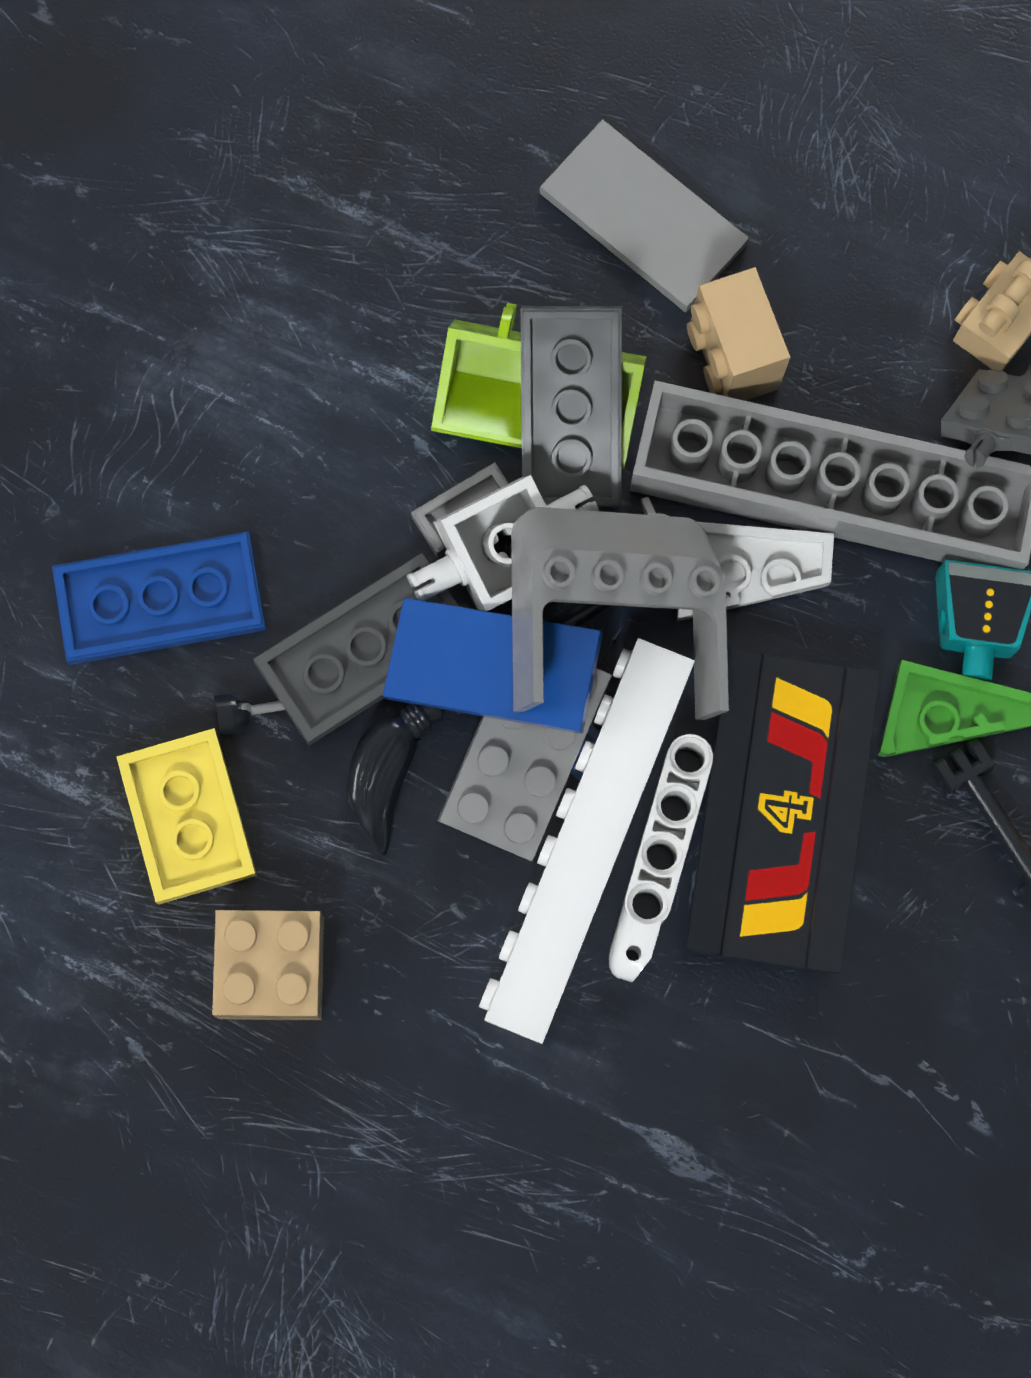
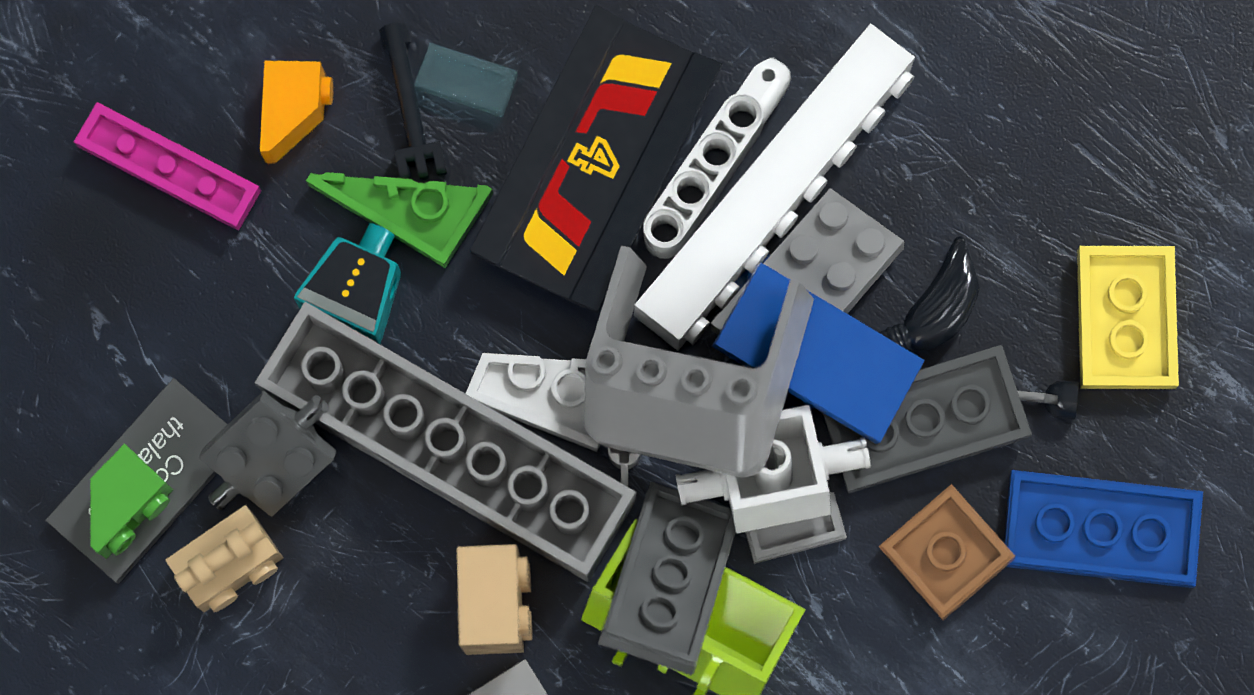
camera: 155 degrees left, 0 degrees up
(268, 965) = (1088, 162): tan brick -> none
(307, 526) = (947, 552): none -> medium nougat tile
(947, 867) = (466, 80): none -> clear light blue tile

